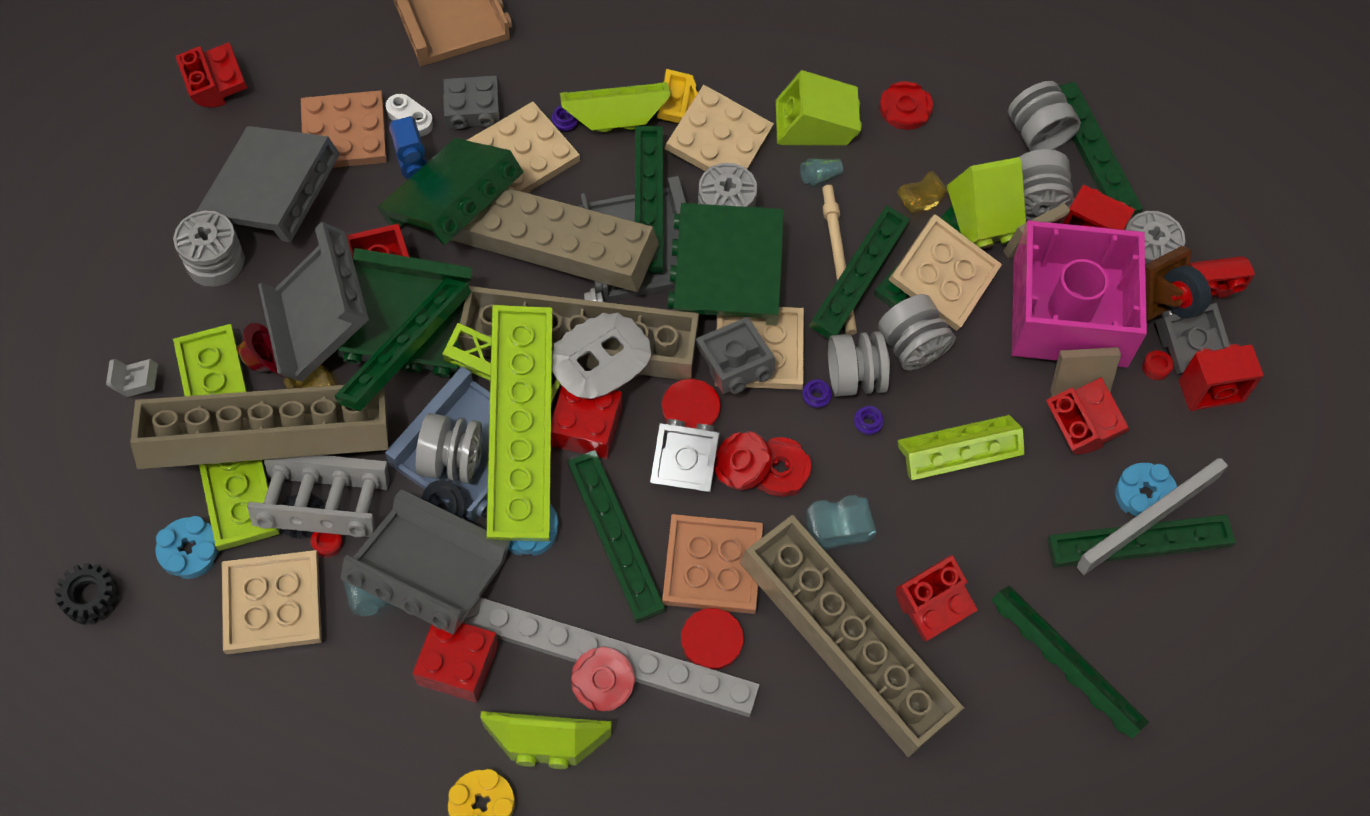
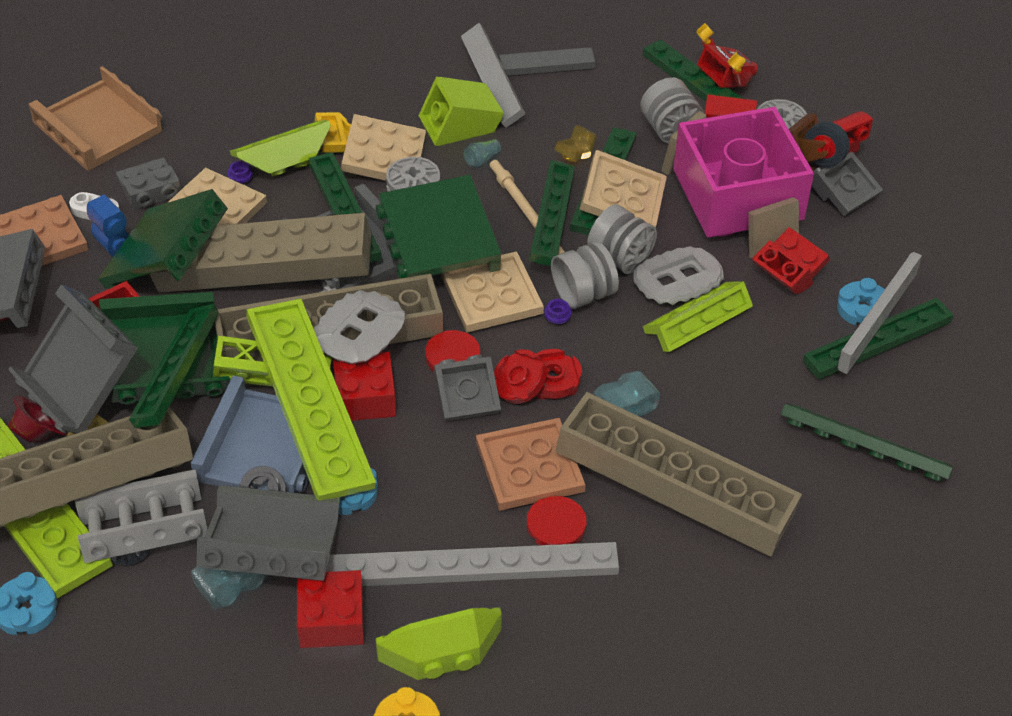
camera: 20 degrees left, 15 degrees down
(271, 602) = (129, 622): tan plate -> none
(326, 544) = (161, 559): red tile -> none
(443, 447) = (251, 439): light grey wheel -> none
(603, 678) = (474, 580): tile -> none
(615, 537) = (433, 469): dark green plate -> none
(736, 356) = (478, 296): dark grey plate -> none
(871, 413) = (611, 318): dark purple plate -> none
(872, 73) = (492, 73): none -> light grey tile
(906, 105) = (533, 91): red tile -> none
(936, 598) = (734, 427): red brick -> none
(939, 72) = (548, 61): none -> dark grey tile
(958, 374) = (670, 264): none -> light grey piece
(989, 201) = (636, 128): lime slope -> none
(1044, 116) = (648, 61): light grey wheel -> none
(1129, 141) = (723, 64): none -> red torso
(1157, 365) = (826, 214): red tile -> none
(1220, 377) = (881, 202): red brick -> none

